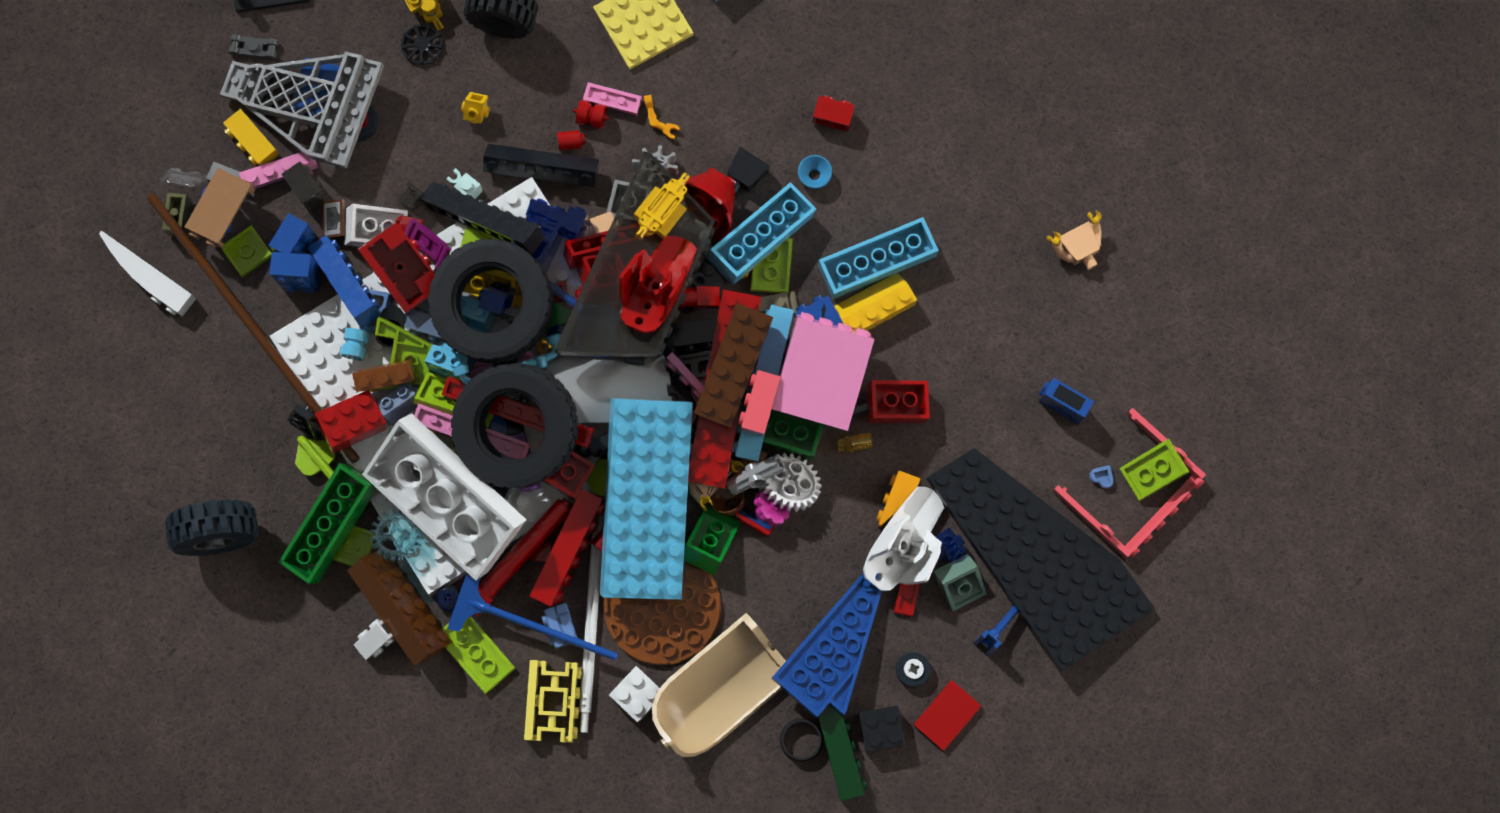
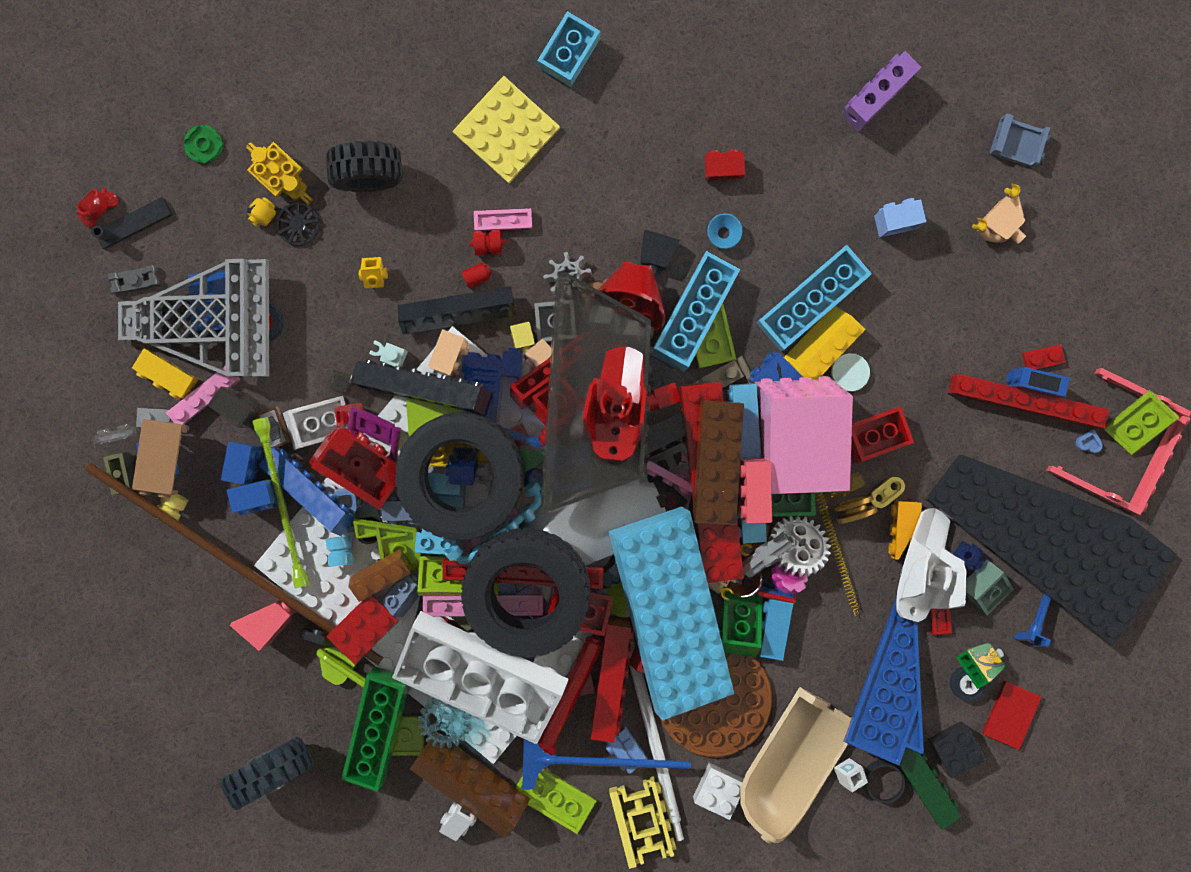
camera: 15 degrees left, 10 degrees up
(157, 284) = (117, 543): white slope -> none
(214, 258) = (173, 505): none -> light yellow wheel
(246, 251) = (201, 485): lime tile -> none
(261, 392) = (265, 624): none -> coral slope
(323, 210) = (262, 428): none -> lime hose
(392, 23) = (261, 212): none -> yellow head
(443, 593) = (510, 764): clear blue head -> none
(518, 194) = (448, 354): none -> light nougat brick
(593, 203) = (522, 336): none -> light yellow brick
(654, 123) = (552, 231): light orange piece -> none
(662, 208) = (595, 326): yellow piece -> none
(741, 555) = (775, 628): none -> dark azure brick
(769, 719) = (850, 775): none -> white brick
(826, 500) = (837, 550): none -> yellow piece
(854, 464) = (855, 509): none -> pearl gold wheel
(891, 461) = (886, 492): none -> light yellow plate
(892, 339) = (850, 372): none -> light aqua tile
(930, 650) = (982, 663): none -> green torso
(981, 209) = (900, 218): none -> light blue brick
(999, 91) = (880, 90): none -> medium lavender brick
(1053, 417) = (1028, 401): none -> red brick
(1083, 382) = (1043, 357): none -> red plate
(1117, 178) = (1019, 142): none -> sand blue panel

